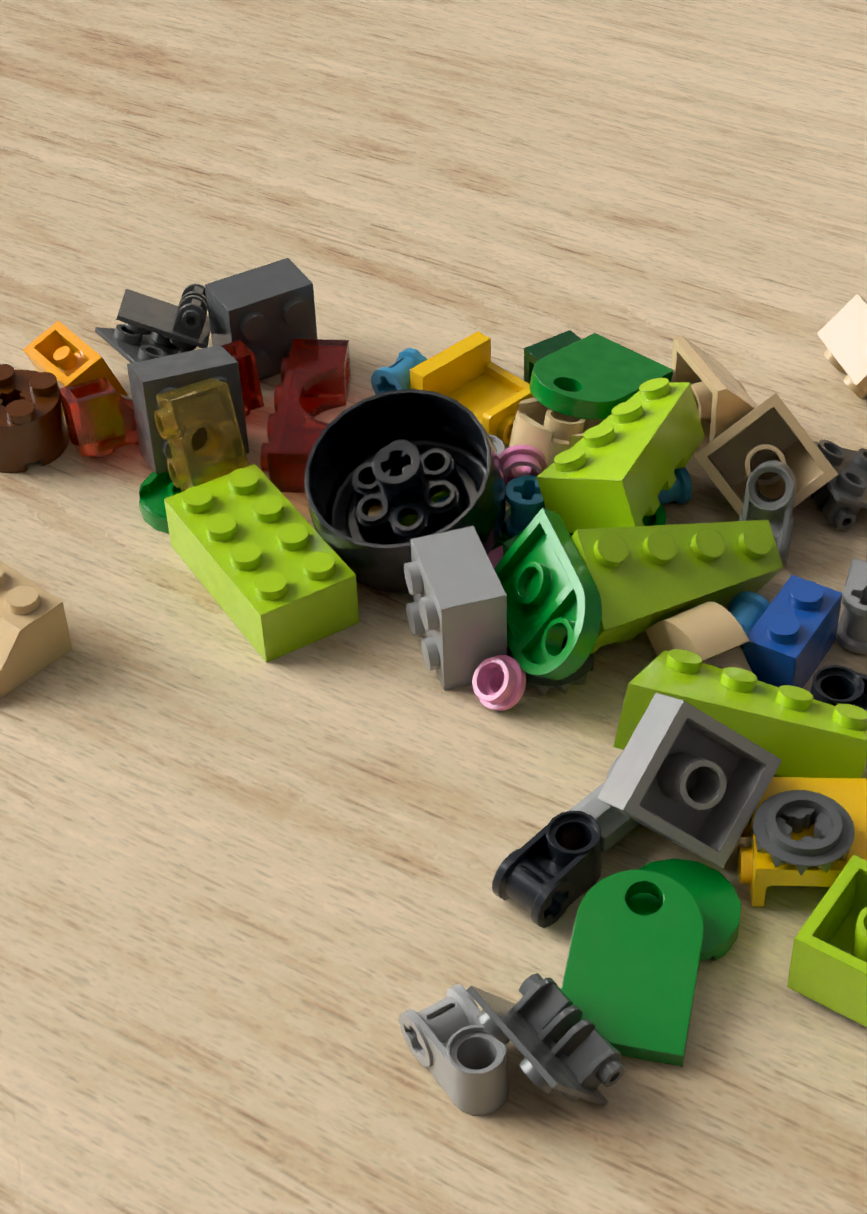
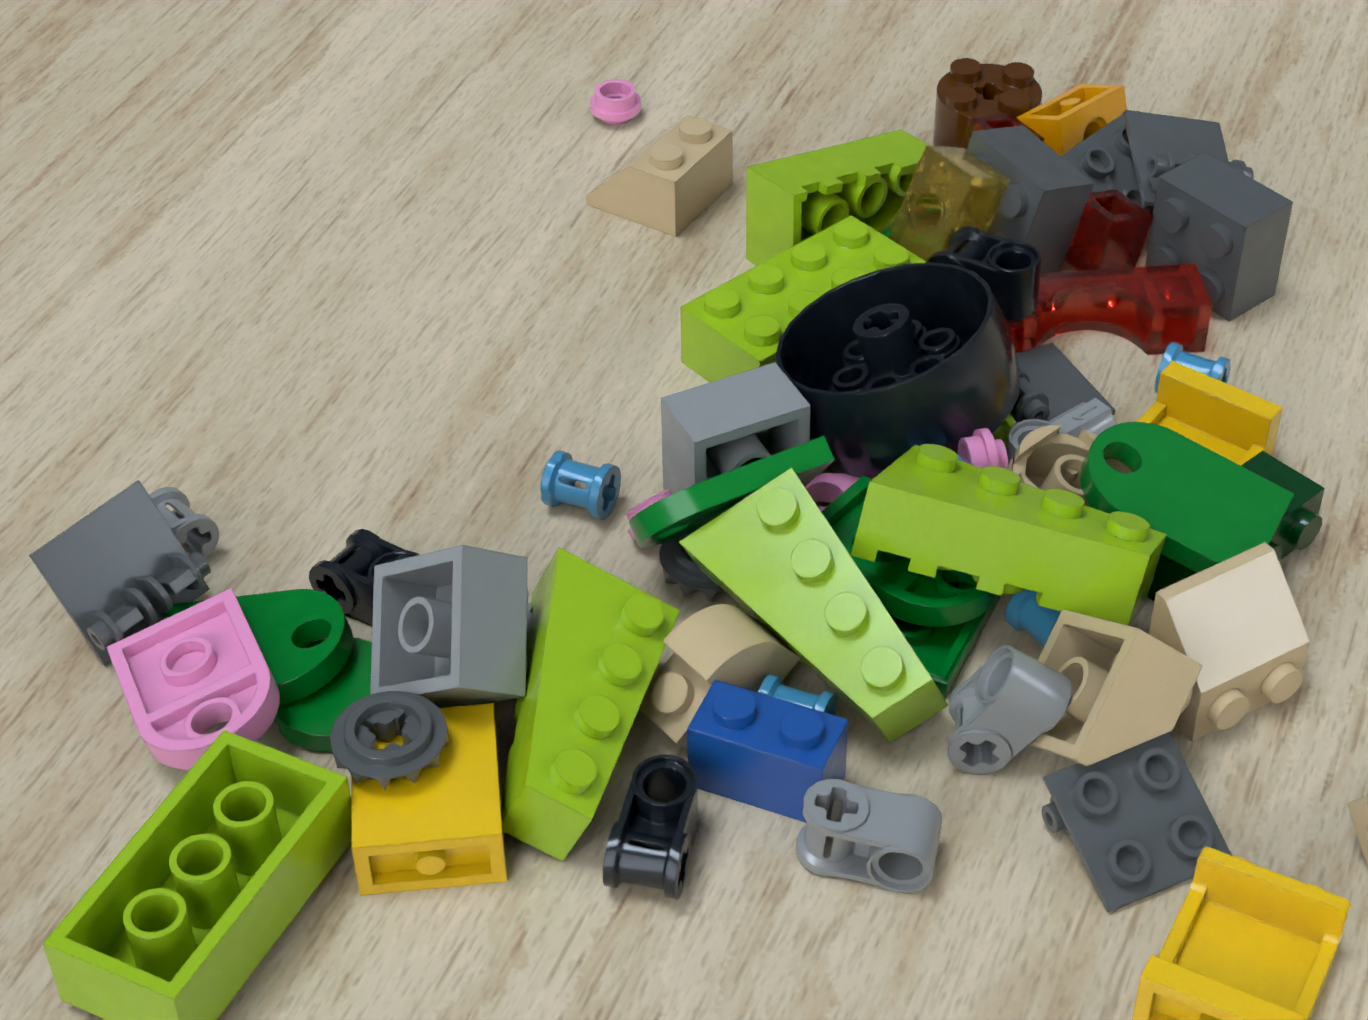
camera: 80 degrees right, 0 degrees up
(110, 520) = (818, 188): none -> lime wedge
(291, 424) = (1005, 264): none -> black piece
(447, 726) = (559, 485): none -> dark azure bush
(685, 990) = (194, 675): none -> bright pink tile

